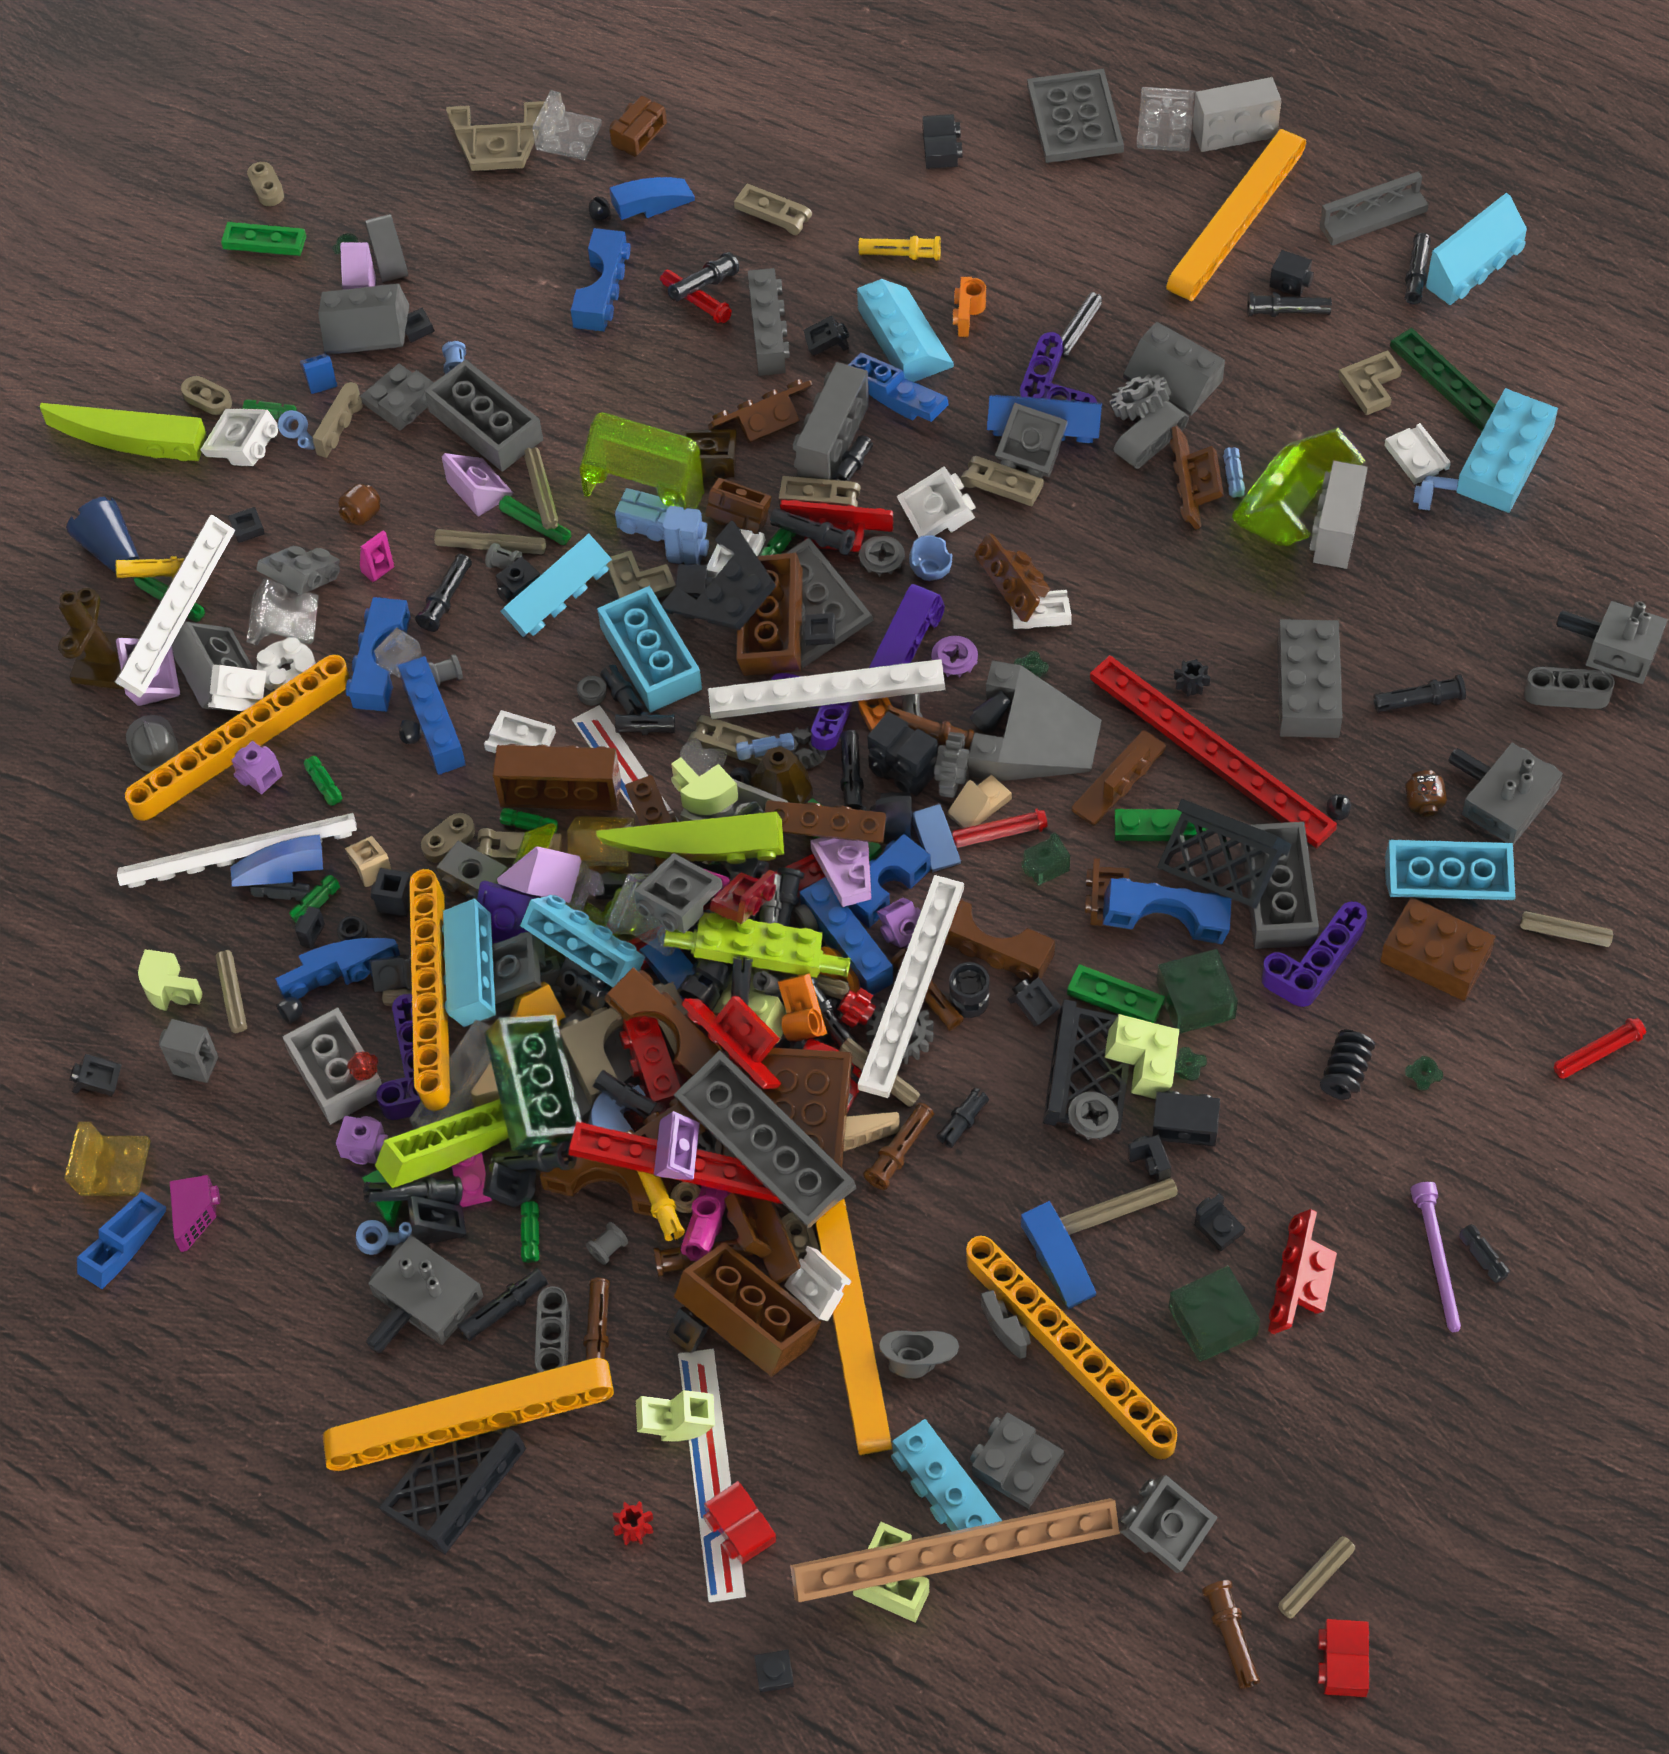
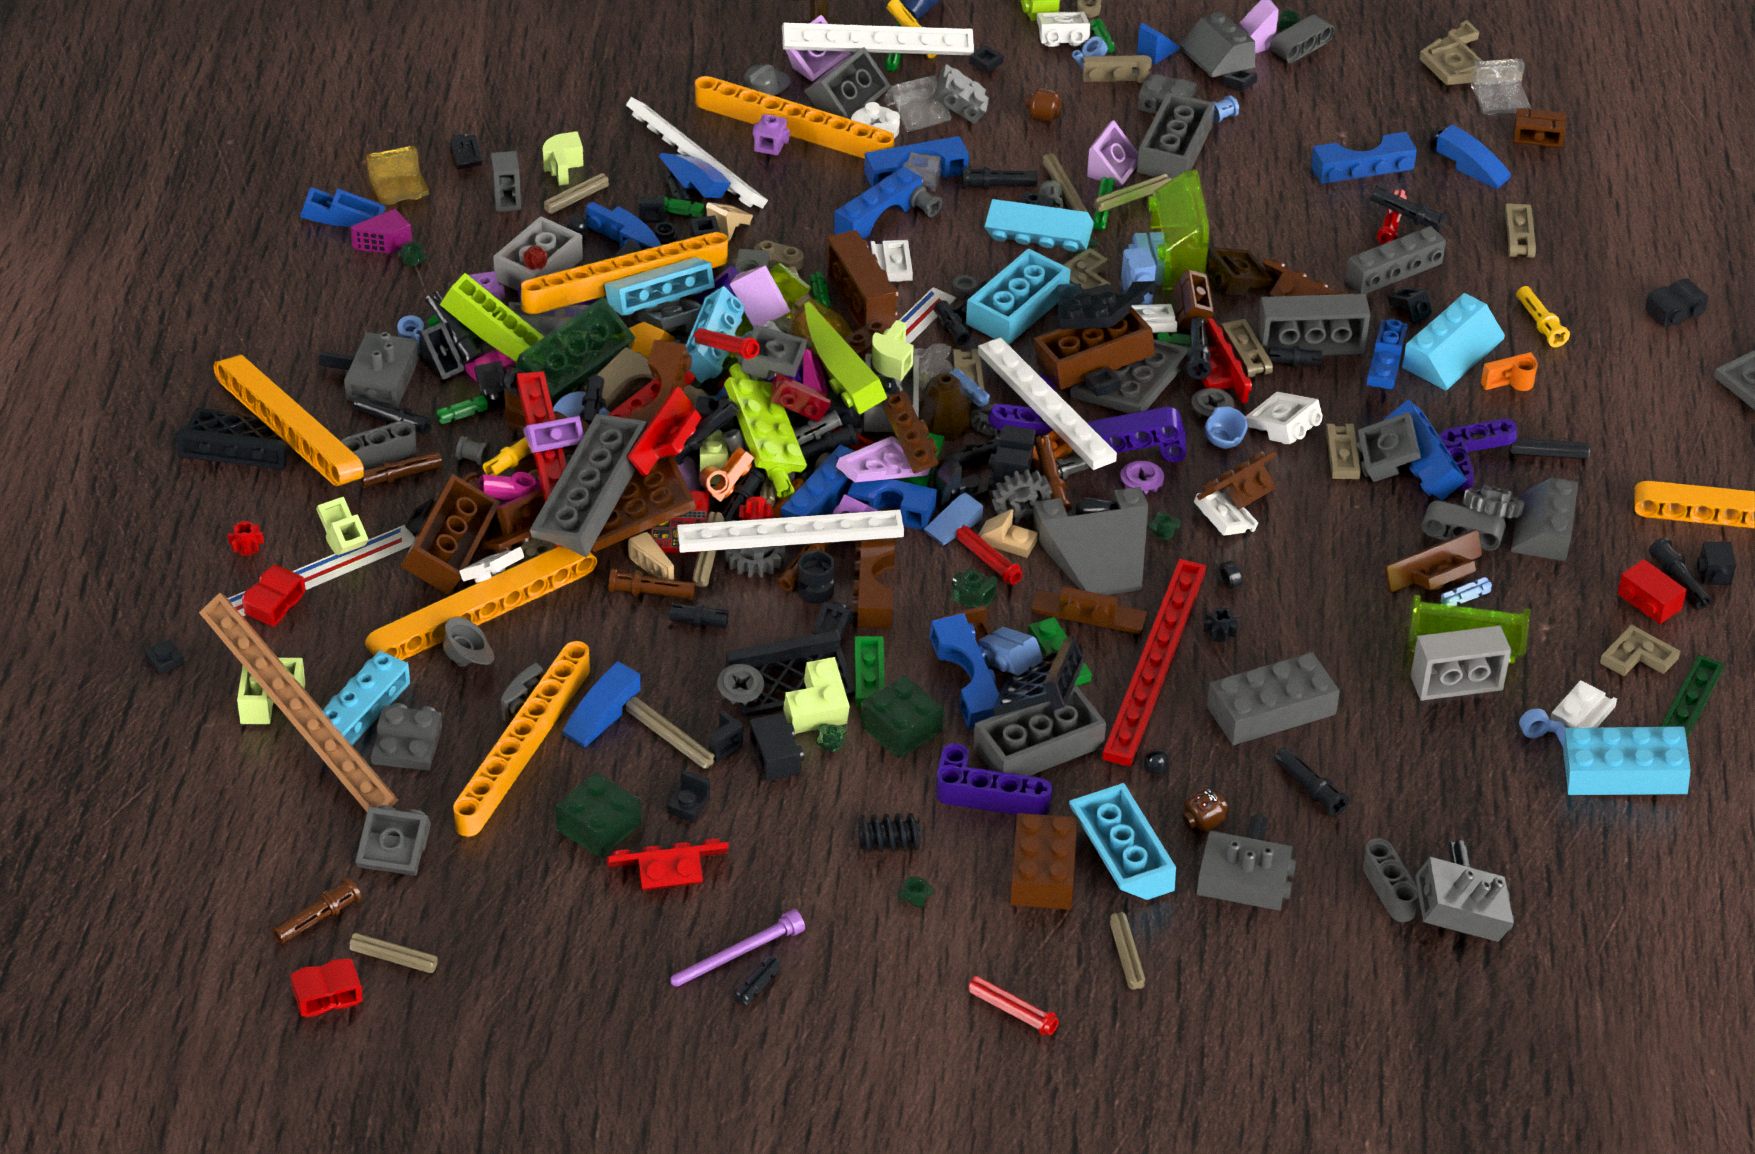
camera: 60 degrees right, 15 degrees down
(236, 687) = (826, 93): white plate -> none
(236, 1185) = (412, 254): none -> clear green plate
(323, 780) = (786, 175): green axle -> none
(376, 557) = (999, 126): dark pink slope -> none
(652, 927) = (745, 347): none -> red axle
(1127, 641) = (1230, 574): none -> black tile
(1161, 860) = (1011, 650): none -> medium blue brick
(1308, 335) = (1651, 591): none -> red brick

